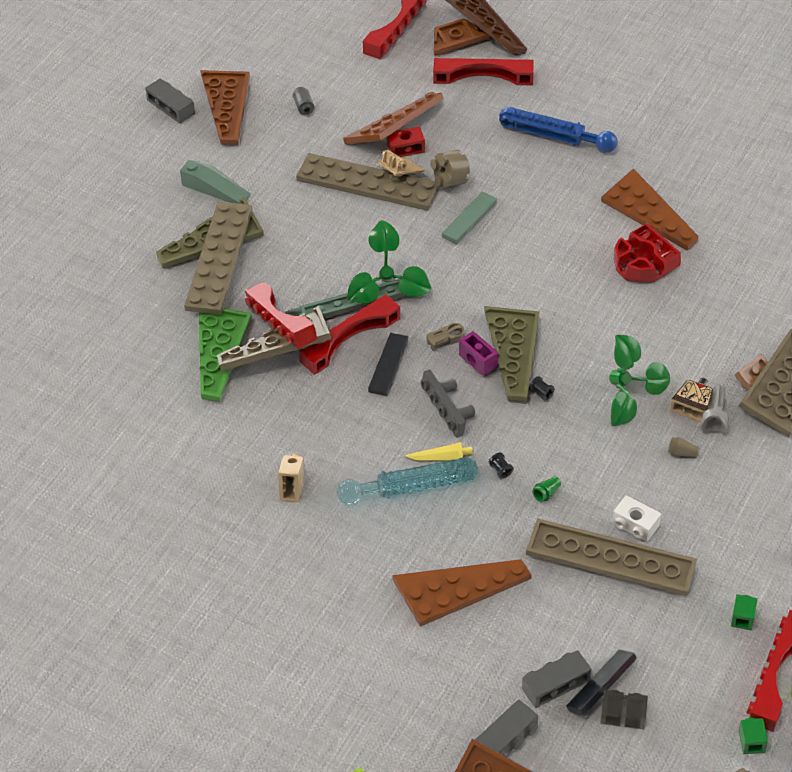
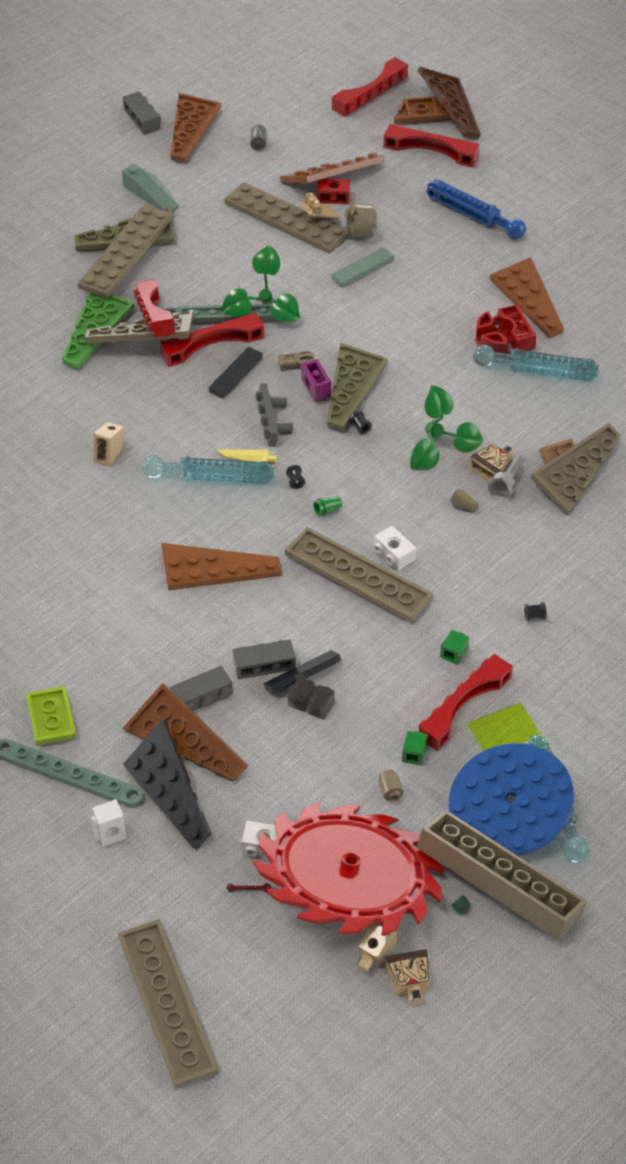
camera: 15 degrees right, 0 degrees up
(691, 280) = (539, 363): none -> clear light blue gear

